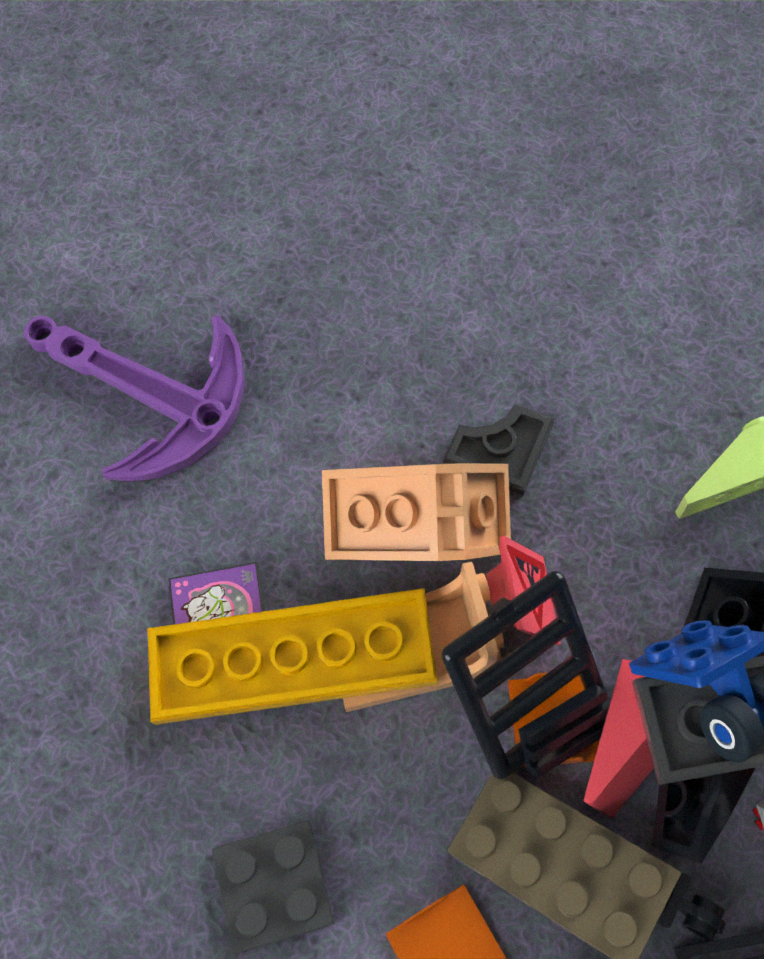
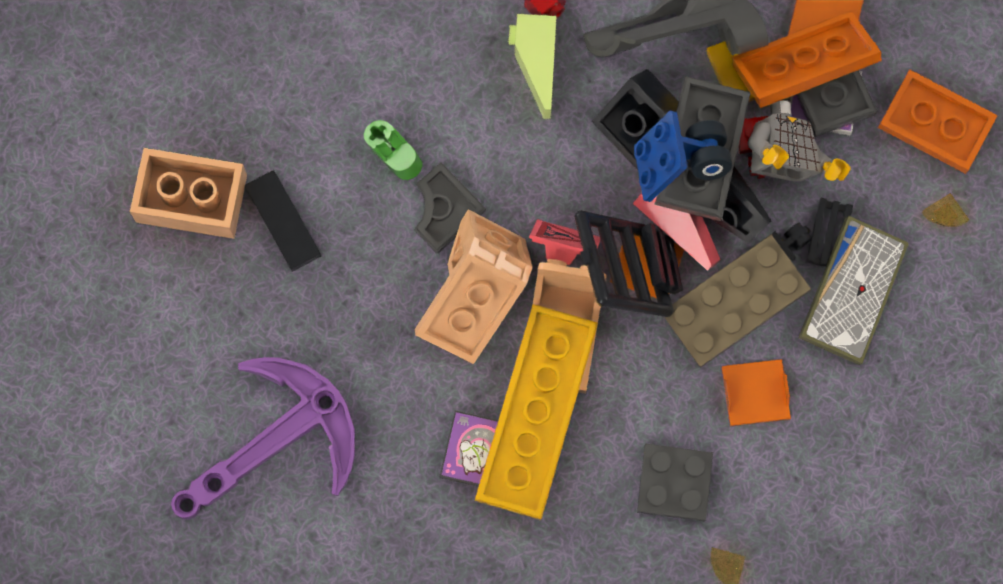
camera: 75 degrees left, 10 degrees up
(383, 189) = (188, 193): none -> light nougat brick
(401, 294) = (282, 220): none -> black tile
(540, 362) = (403, 160): none -> bright green piece

